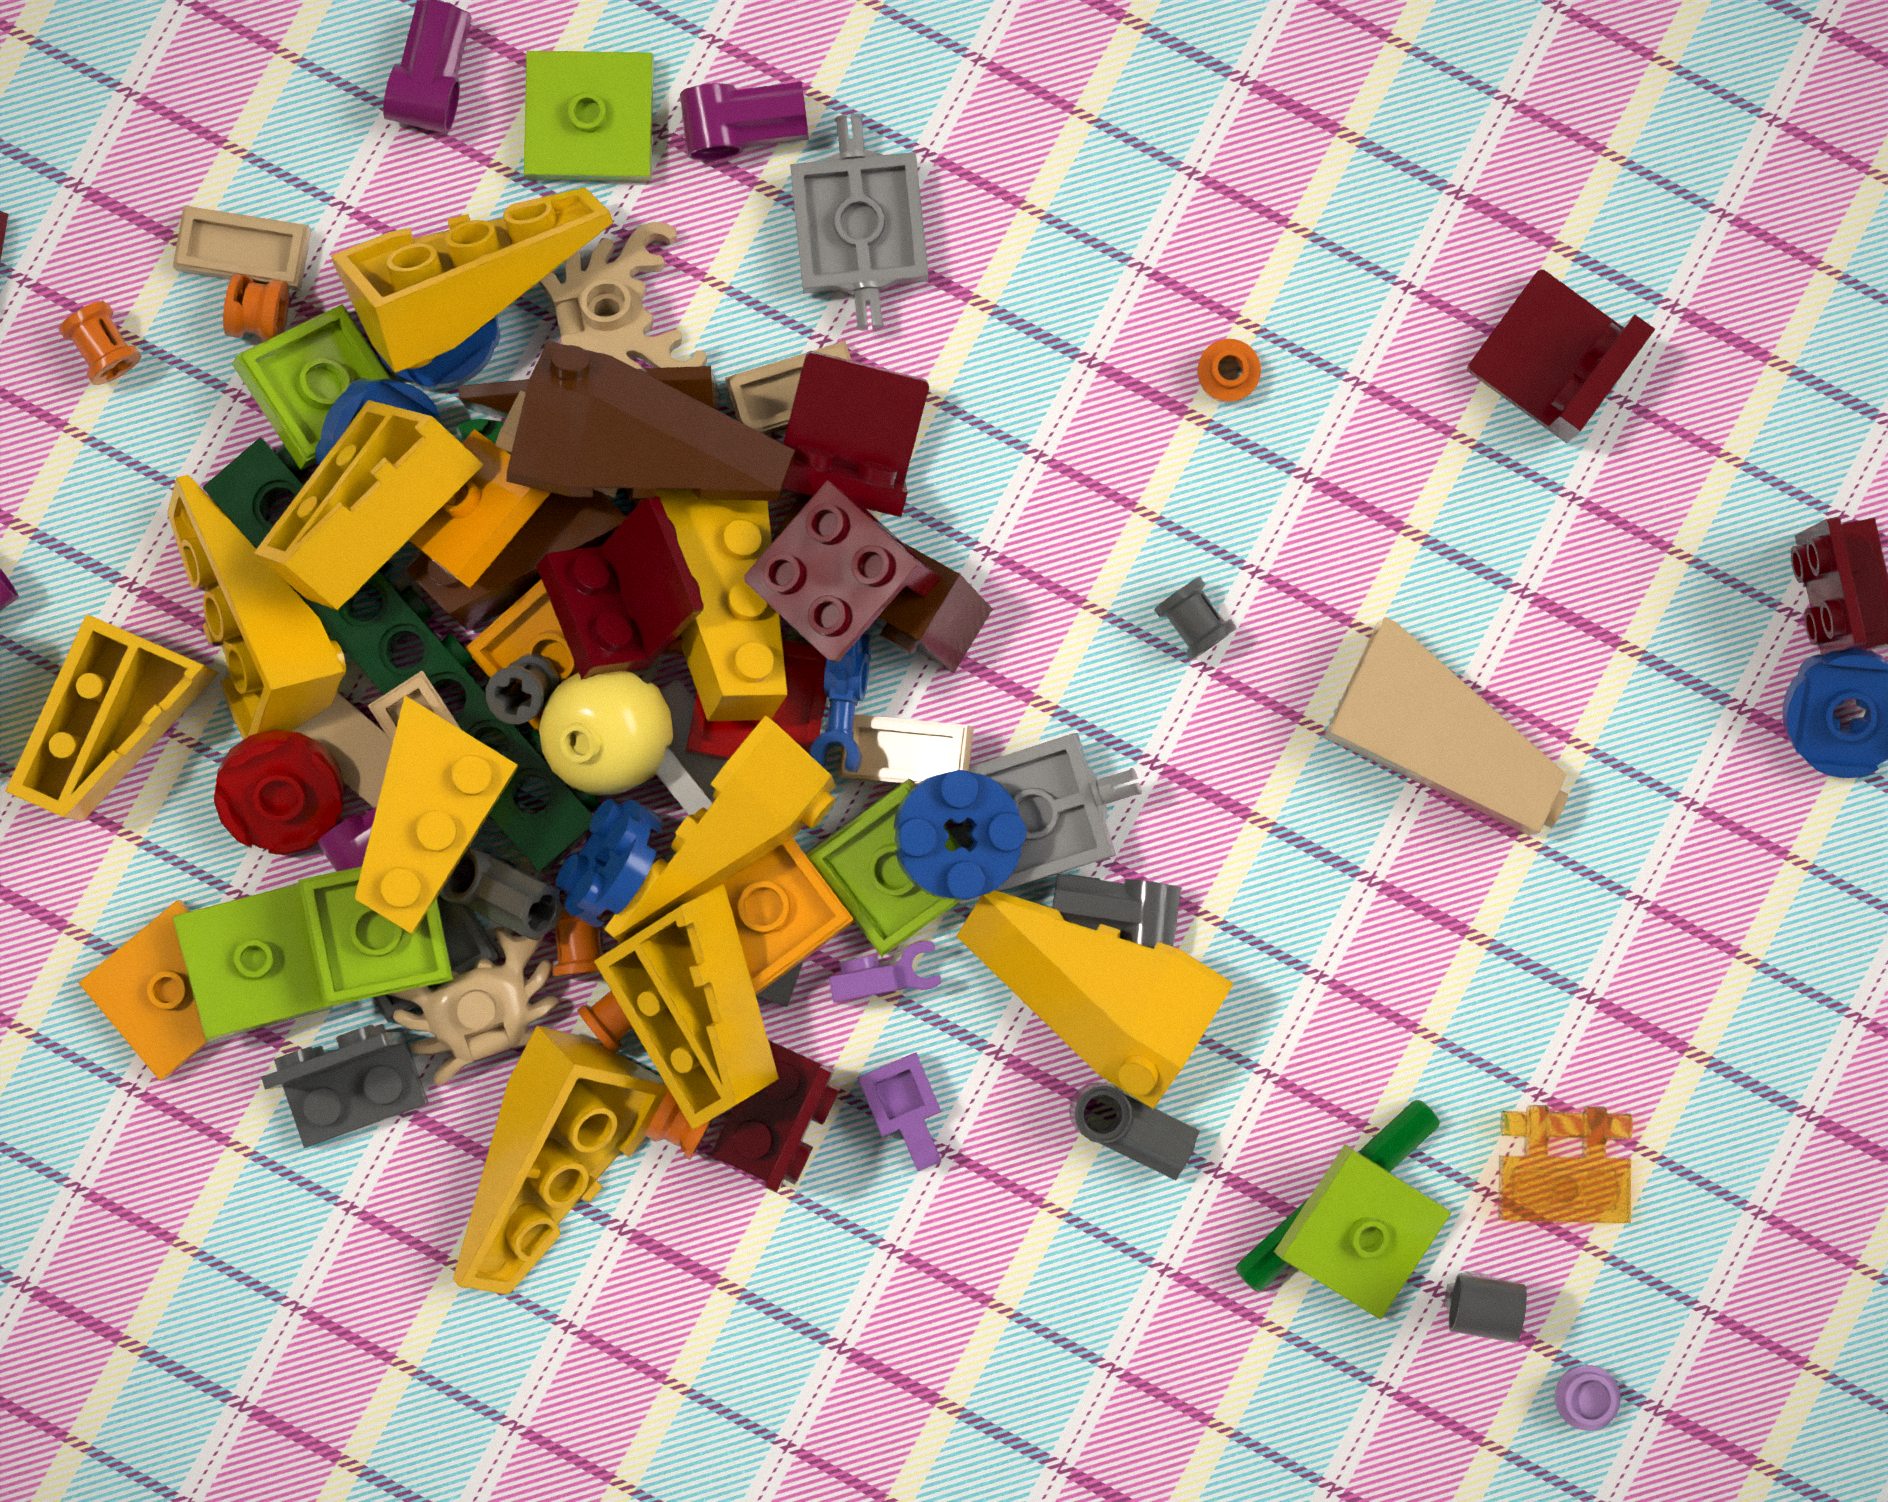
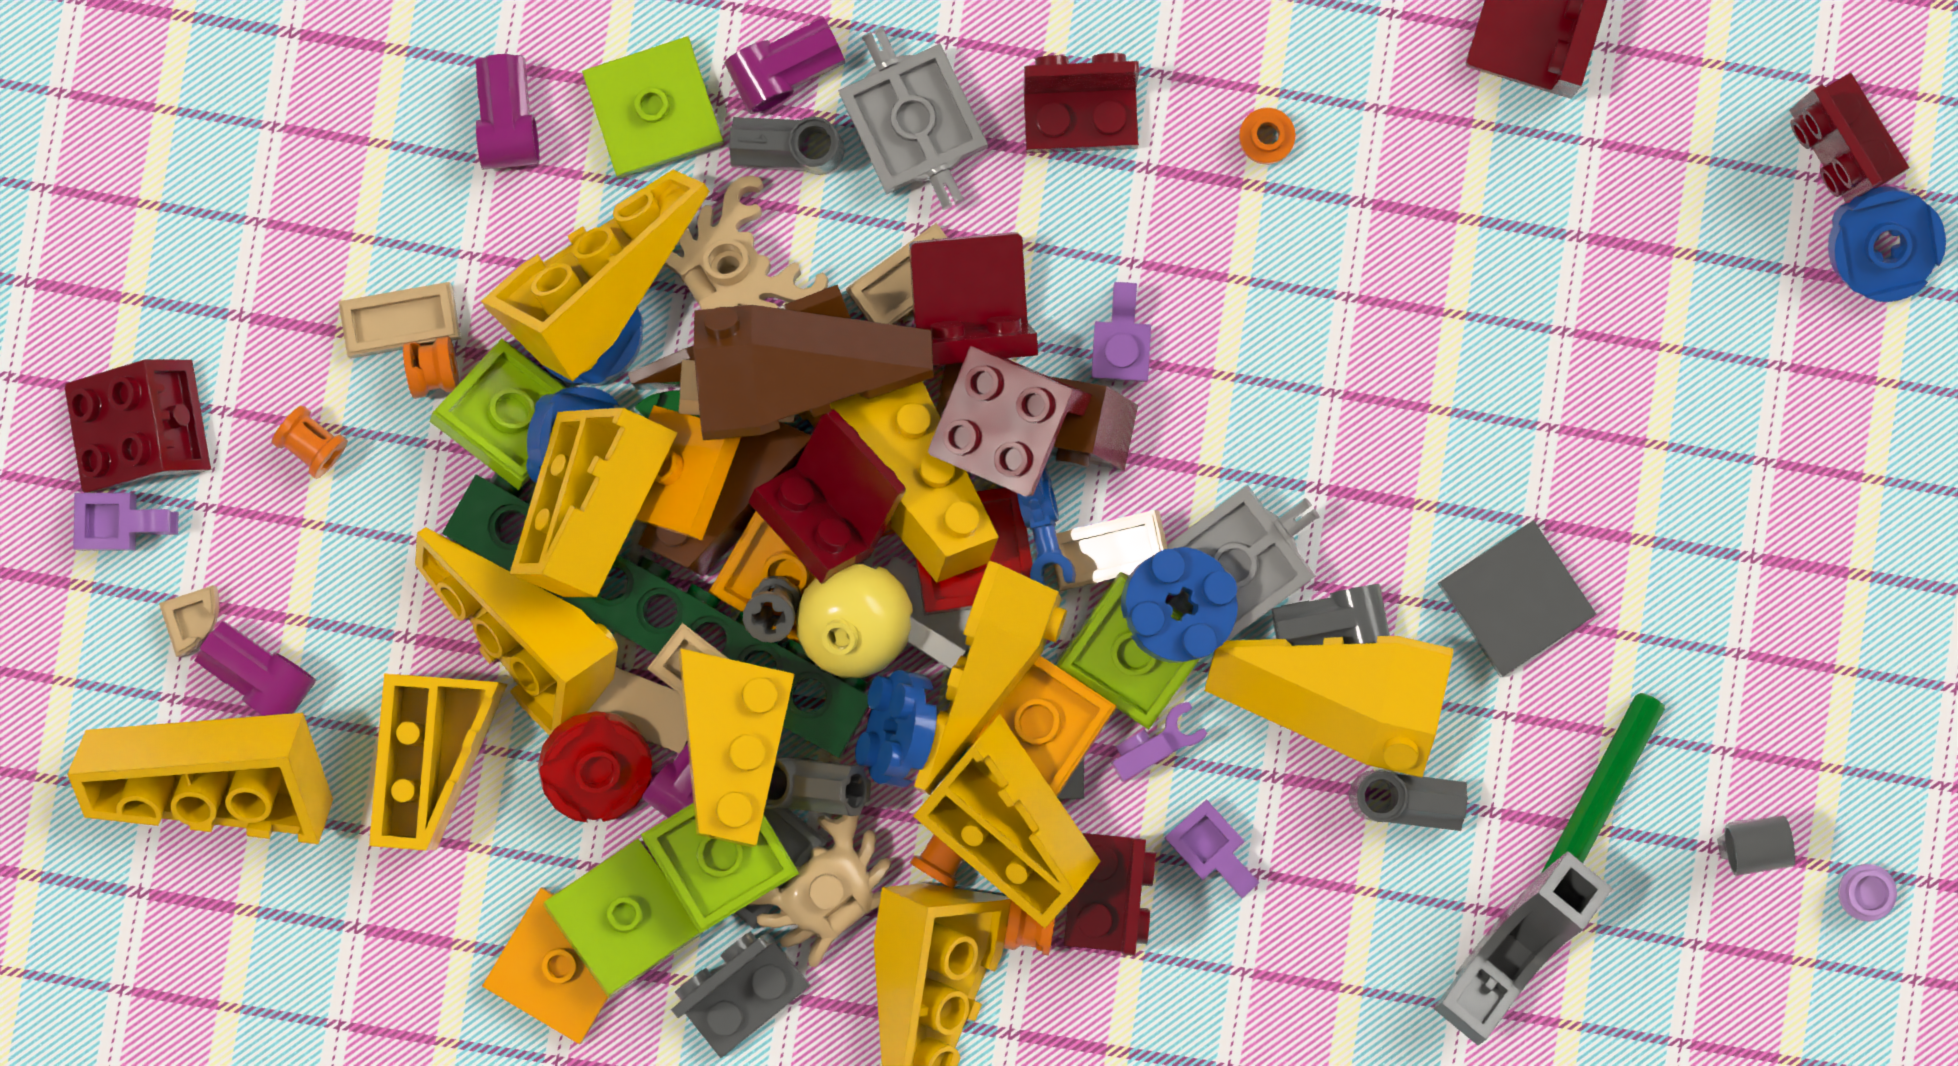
camera: 10 degrees left, 0 degrees up
(576, 946) = (891, 809): orange bush -> none
(710, 200) = (780, 143): none -> dark grey piece
(995, 538) = (1121, 346): none -> medium lavender plate
(1042, 267) = (1080, 104): none -> dark red bracket
(1194, 1324) = (1519, 944): none -> dark grey arch
(1195, 618) = (1312, 354): dark grey bush -> none
(1322, 954) = (1517, 598): none -> dark grey tile
(1362, 1232) = (1633, 819): lime plate -> none
(1437, 731) = (1548, 379): tan slope -> none
(1565, 1186) = (1787, 723): clear yellow plate -> none

